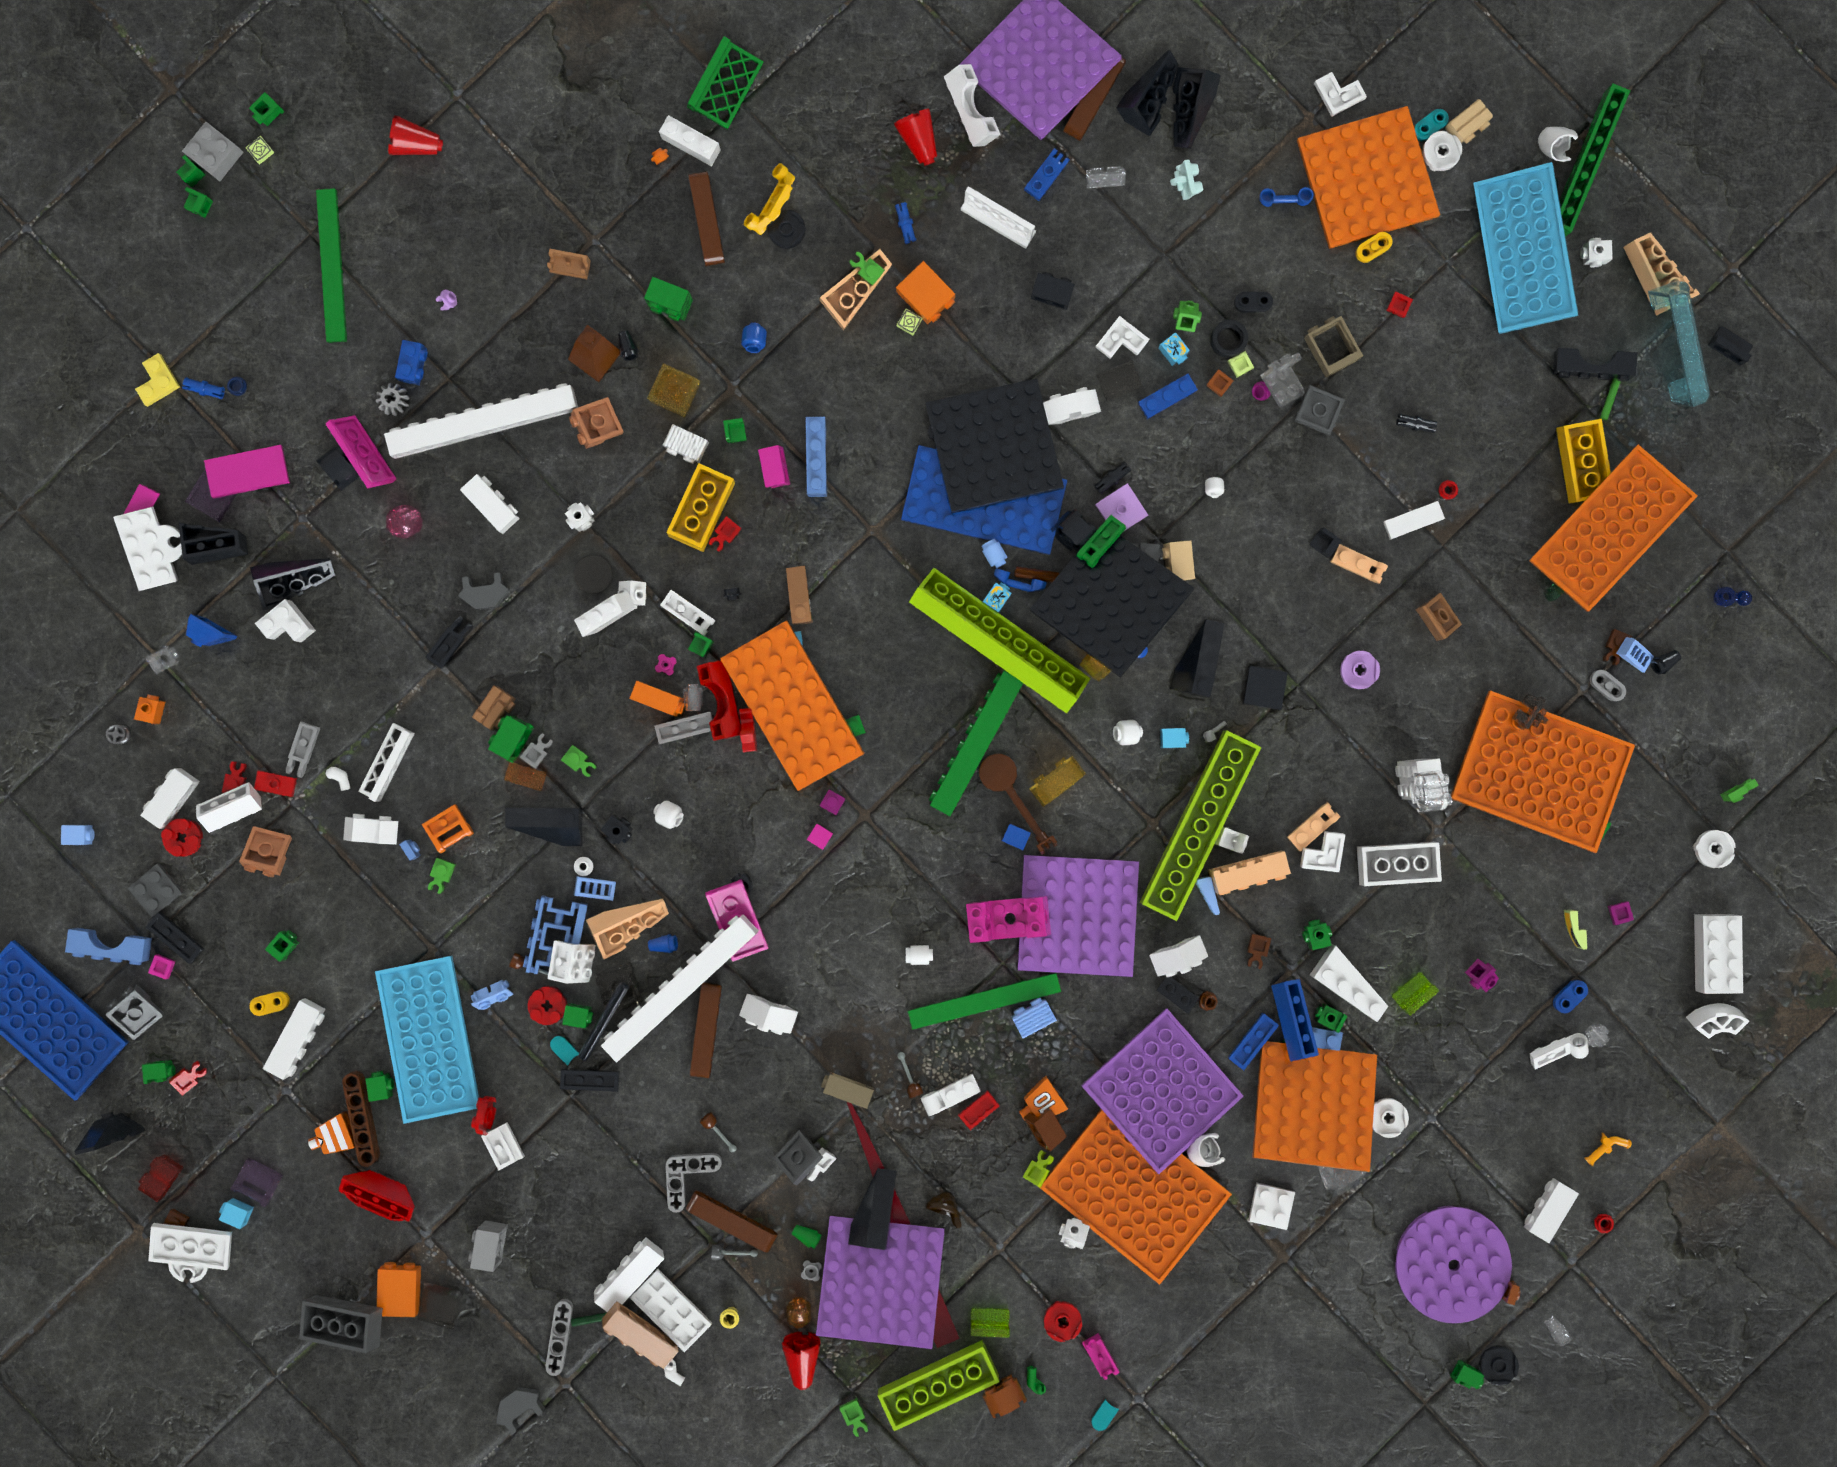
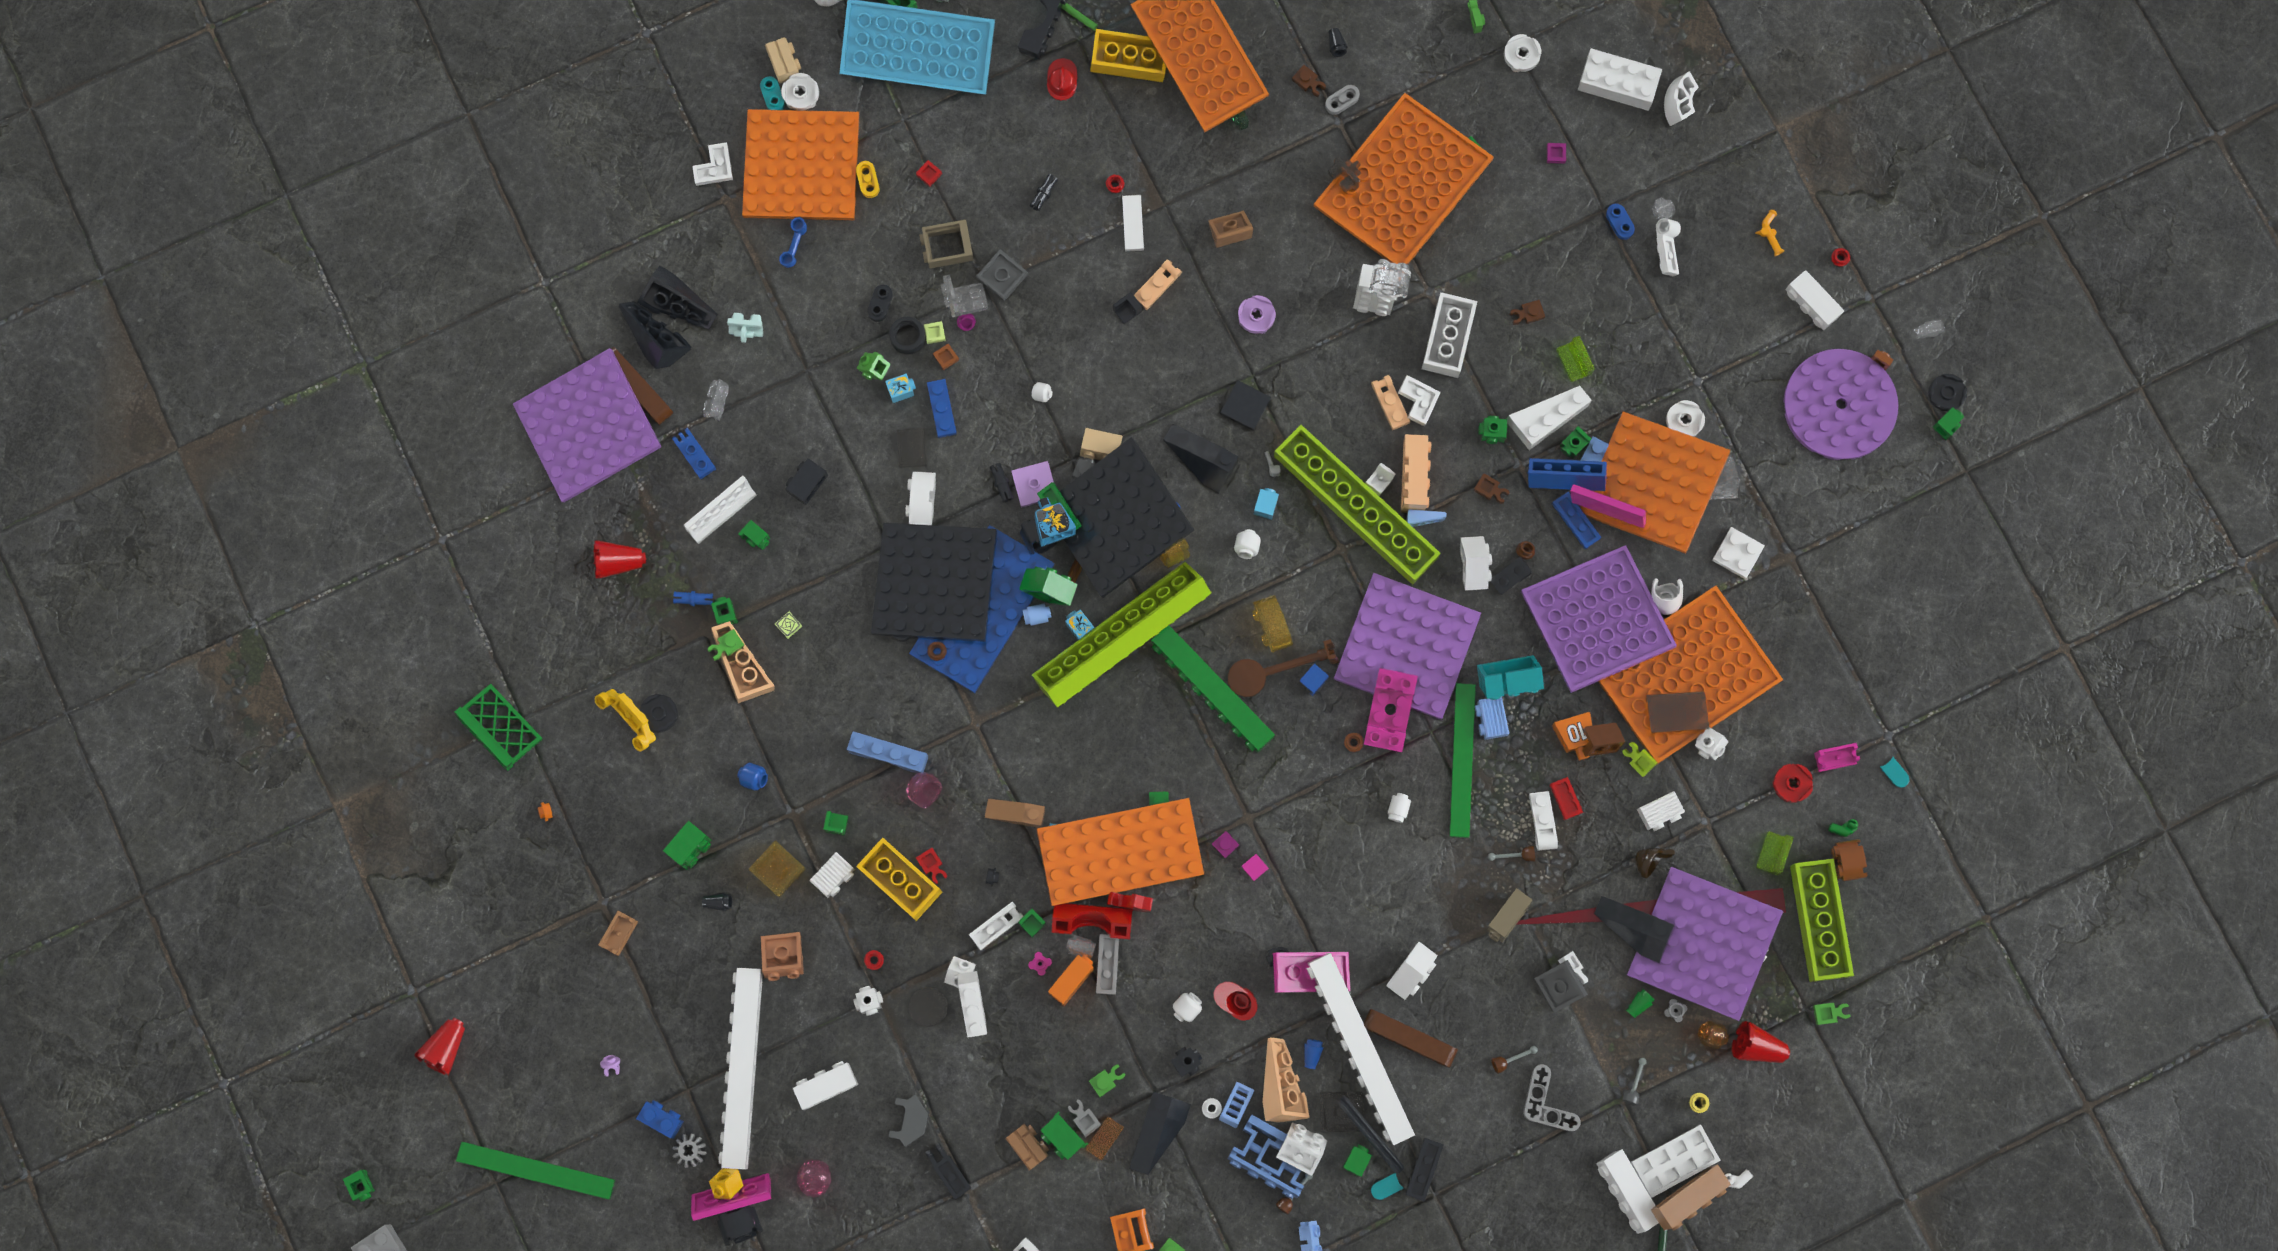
camera: 70 degrees left, 10 degrees down
(260, 150) = (395, 1205): tile -> none
(370, 442) = (726, 1183): none -> yellow brick
(536, 1008) = (1327, 1194): red plate -> none
(593, 353) = (714, 937): reddish brown slope -> none
(620, 503) = (867, 960): none -> red plate
(688, 858) = (1235, 1000): none -> red piece
(689, 140) = (541, 777): white brick -> none
(706, 218) = (621, 785): reddish brown beam -> none
(731, 1221) = (1604, 1072): reddish brown beam -> none
(774, 466) = (883, 797): dark pink hinge -> none
(792, 502) = (923, 789): none -> clear pink hair
(902, 249) = (724, 604): none -> green brick
(926, 293) = (767, 600): orange brick -> none
(927, 464) = (932, 647): none -> reddish brown plate
(962, 84) = (582, 504): white arch -> none
(973, 897) = (1358, 738): none -> dark orange plate
(984, 260) = (754, 535): none -> green brick
(995, 1204) = (1660, 811): none -> white brick
(1003, 577) = (1060, 613): blue bar -> none
(1023, 555) = (1048, 586): none -> green brick
(1077, 1024) = (1510, 677): none -> teal piece
(1084, 539) = (1053, 522): none -> torso
(1095, 1193) = (1677, 711): none -> clear smoke piece
(1122, 333) = (869, 430): white plate -> none
(1274, 1070) = (1608, 506): none -> dark pink tile
(1448, 935) = (1530, 312): none -> reddish brown plate
(1482, 975) = (1577, 293): magenta brick -> none
(1539, 403) = (1062, 79): none -> red piece
(1578, 936) = (1564, 198): yellowish green slope -> none
(1626, 648) = (1316, 75): light blue slope -> none

